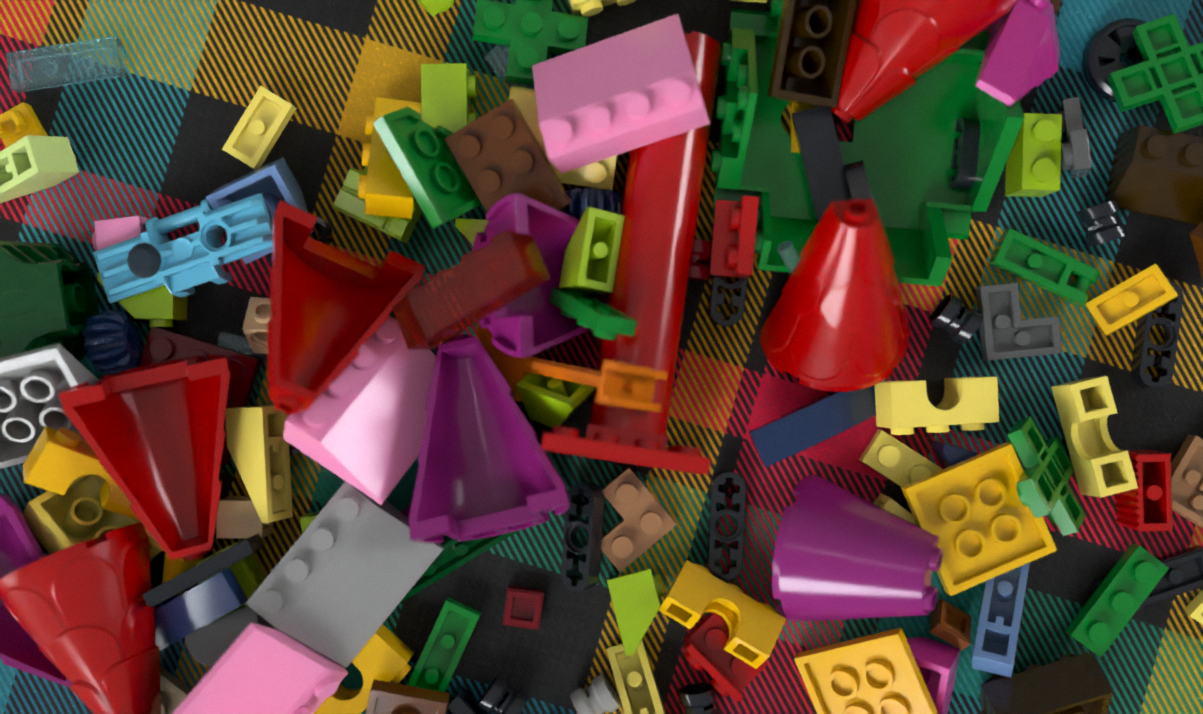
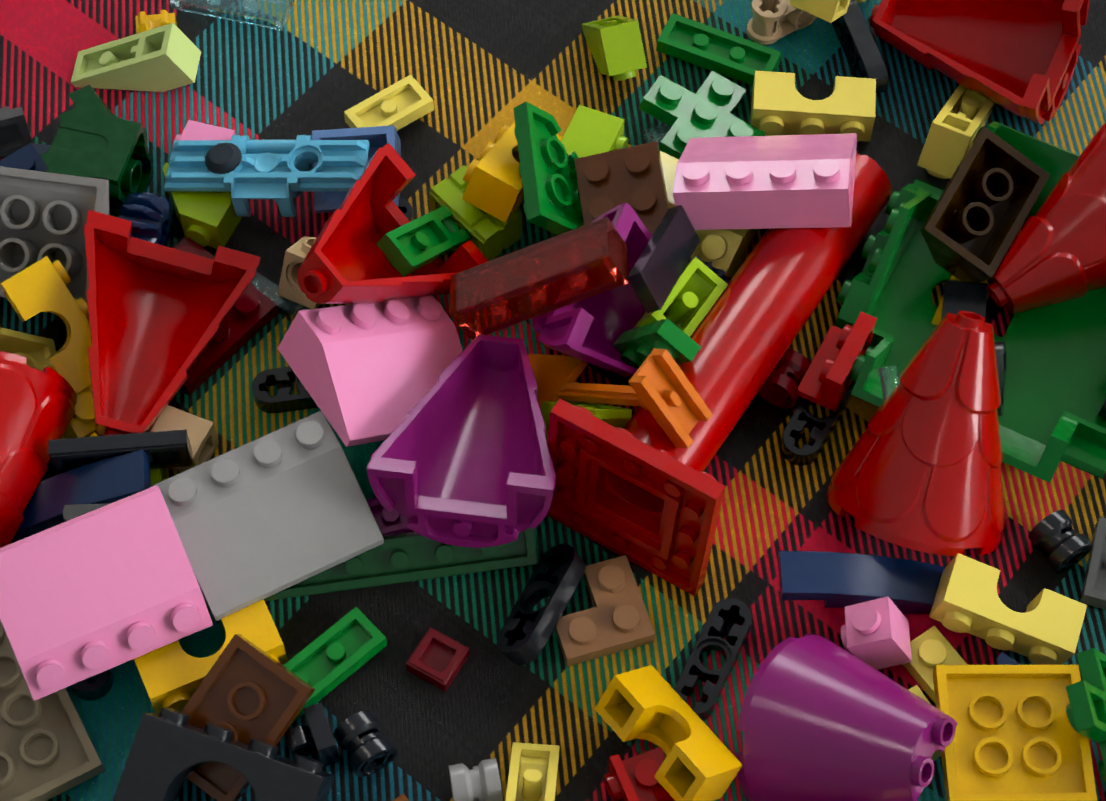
camera: 20 degrees right, 30 degrees down
(262, 458) = (237, 378): light yellow slope -> none
(352, 269) = (422, 241): none -> green plate
(566, 226) = (663, 259): none -> black tile
(635, 604) = (570, 694): lime slope -> none
(845, 464) = (877, 633): none -> bright pink brick

